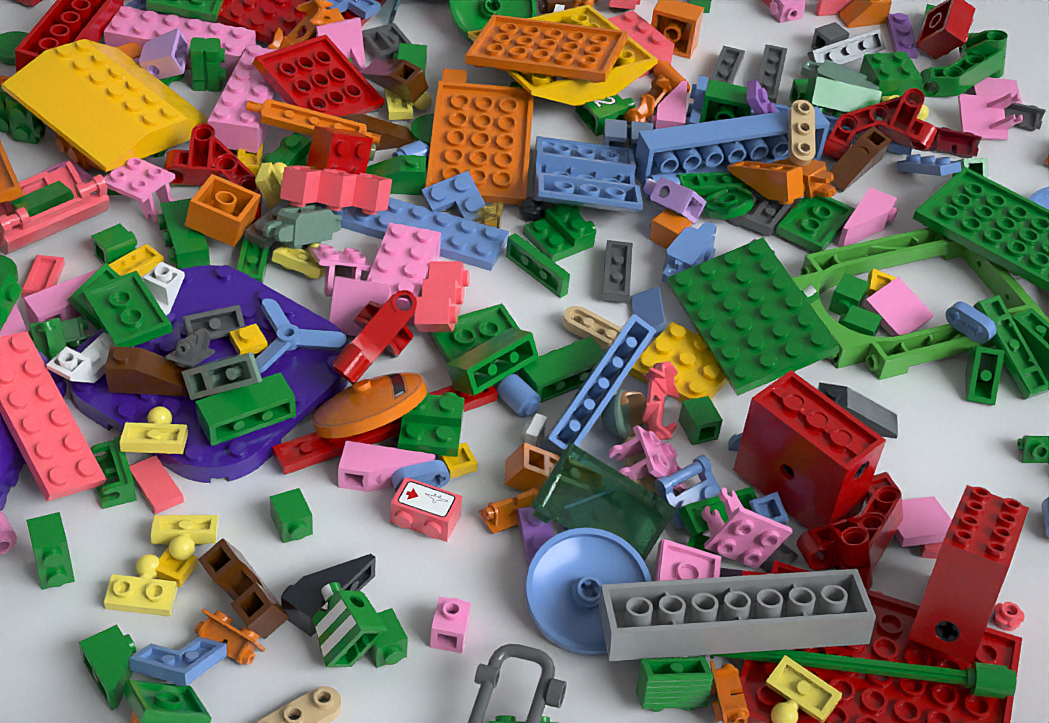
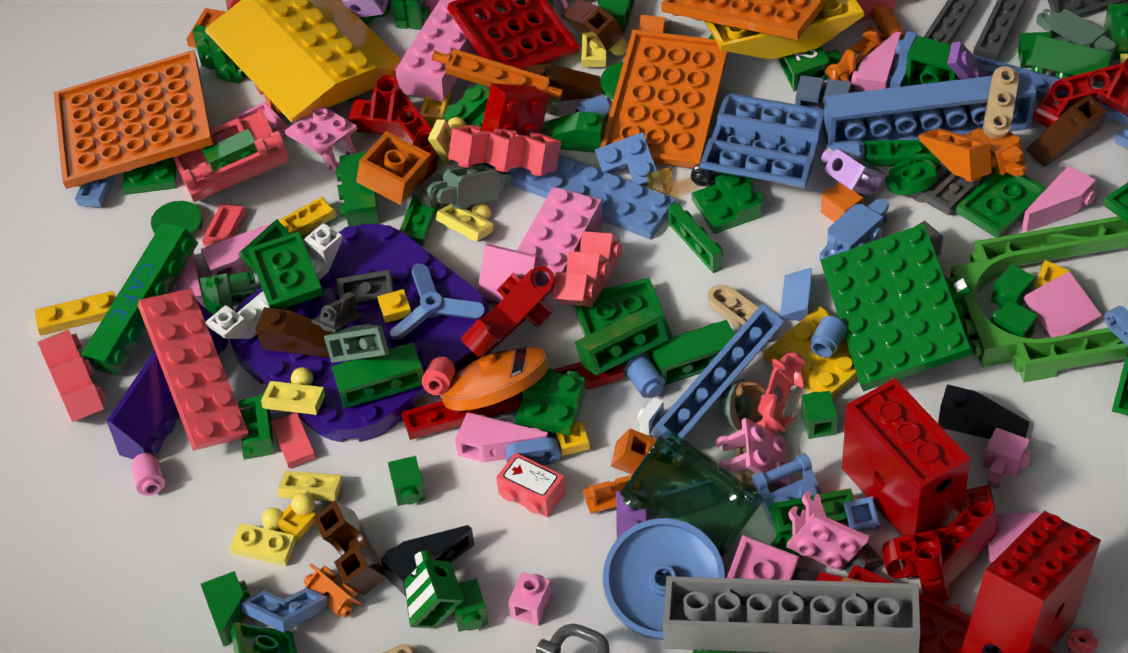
camera: 20 degrees right, 5 degrees up
(50, 550) = (189, 497): green brick -> none
(113, 243) = (291, 195): green brick -> none
(311, 405) = (438, 376): none -> coral brick
(328, 257) = (489, 219): bright pink plate -> none
(617, 271) = (775, 248): dark grey plate -> none
(694, 345) = (828, 336): none -> medium blue brick
(895, 446) = (1006, 455): none -> bright pink brick

